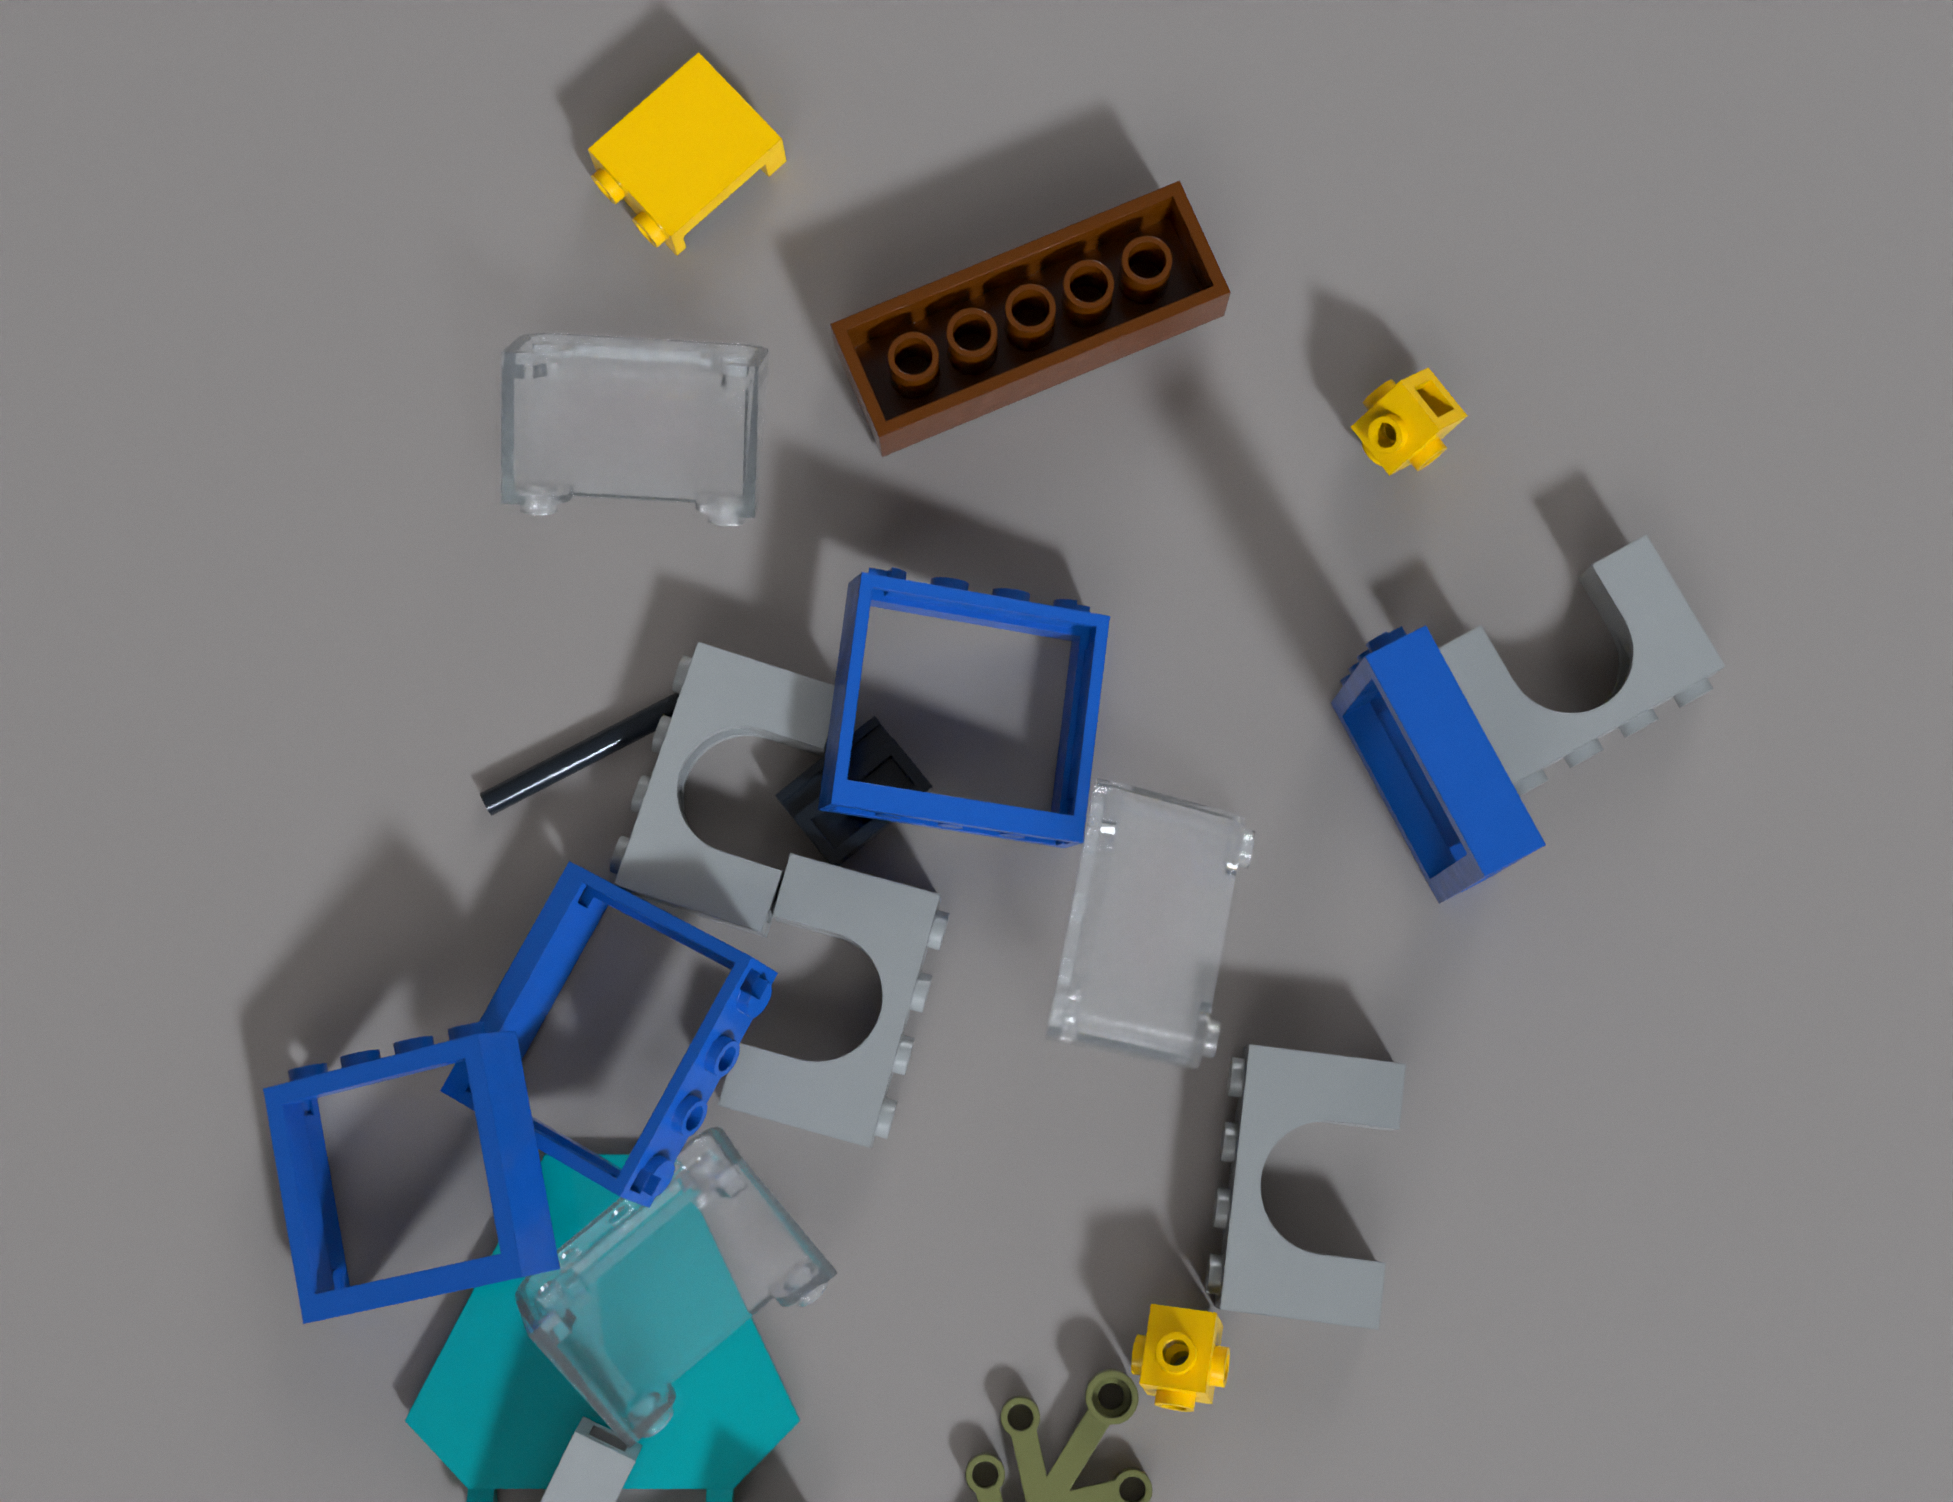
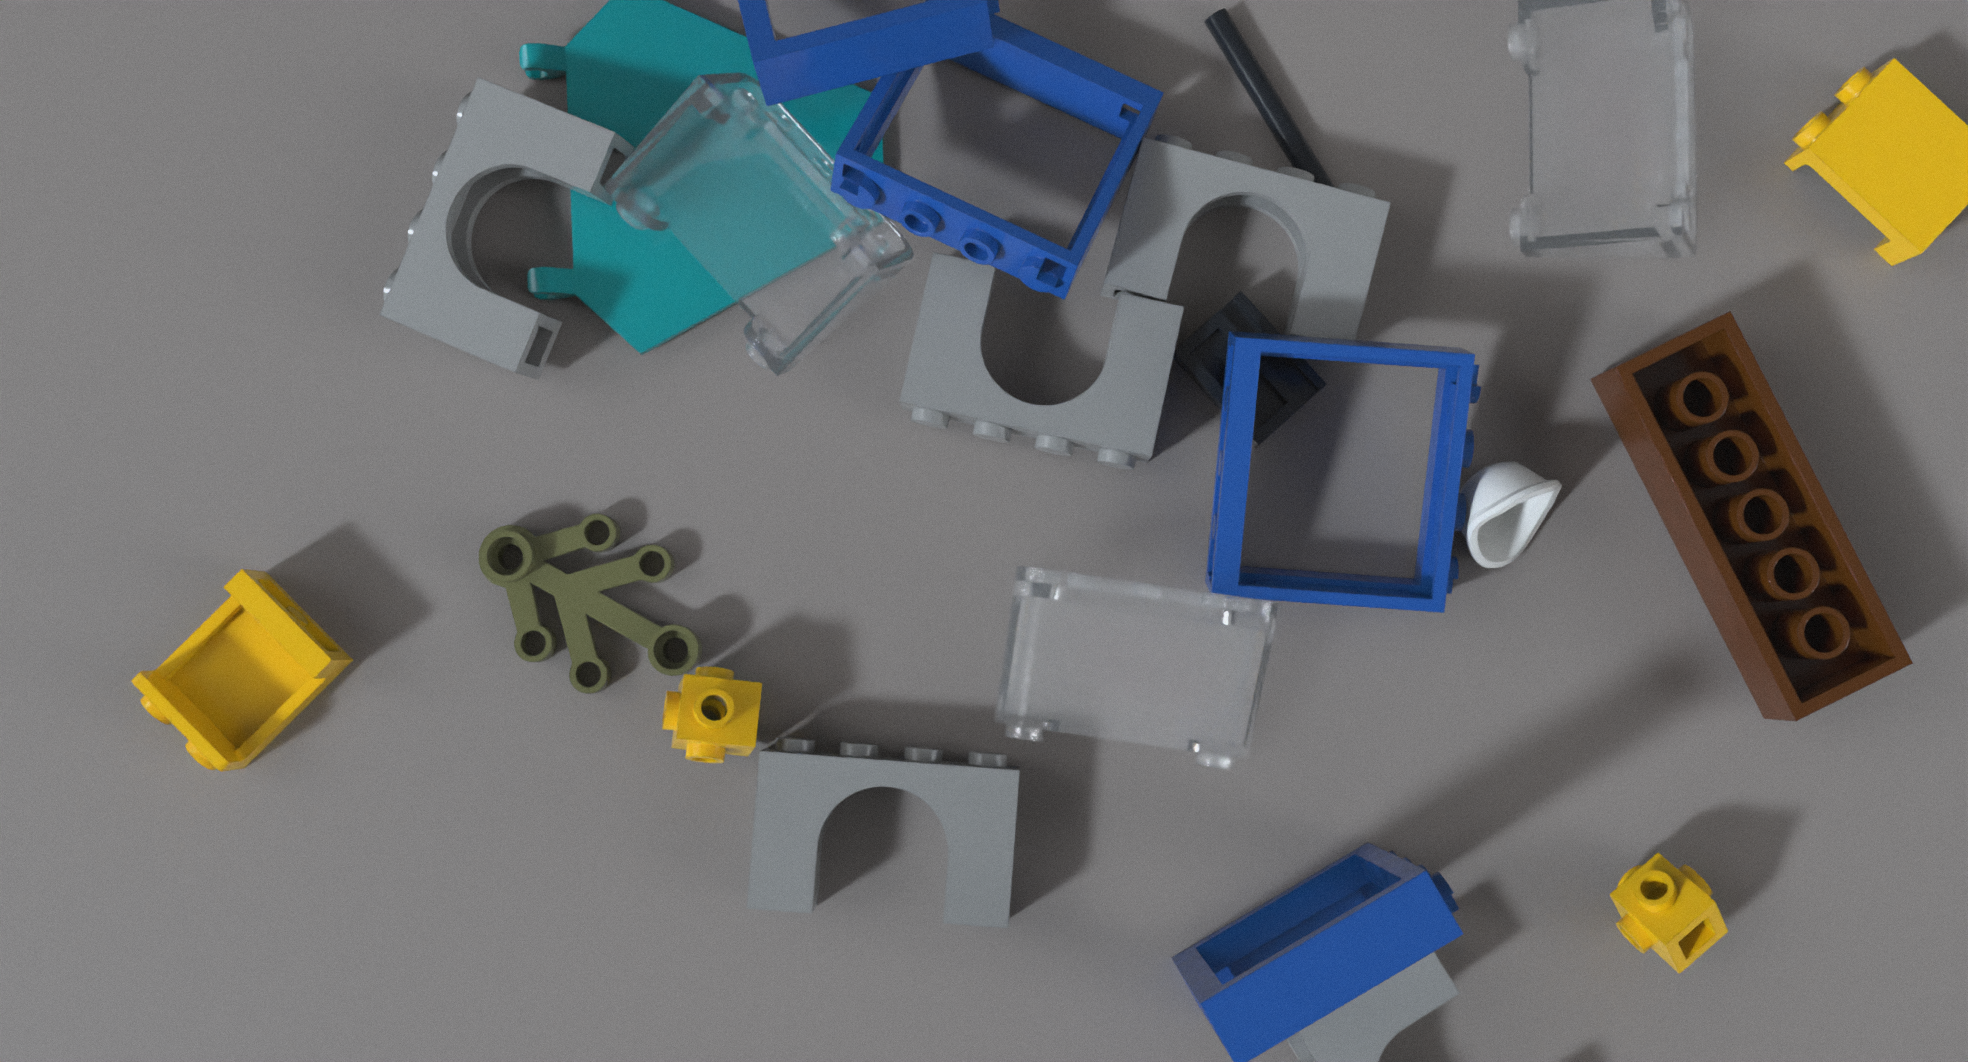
camera: 85 degrees right, 5 degrees up
(1011, 550) = (1504, 511): none -> white helmet

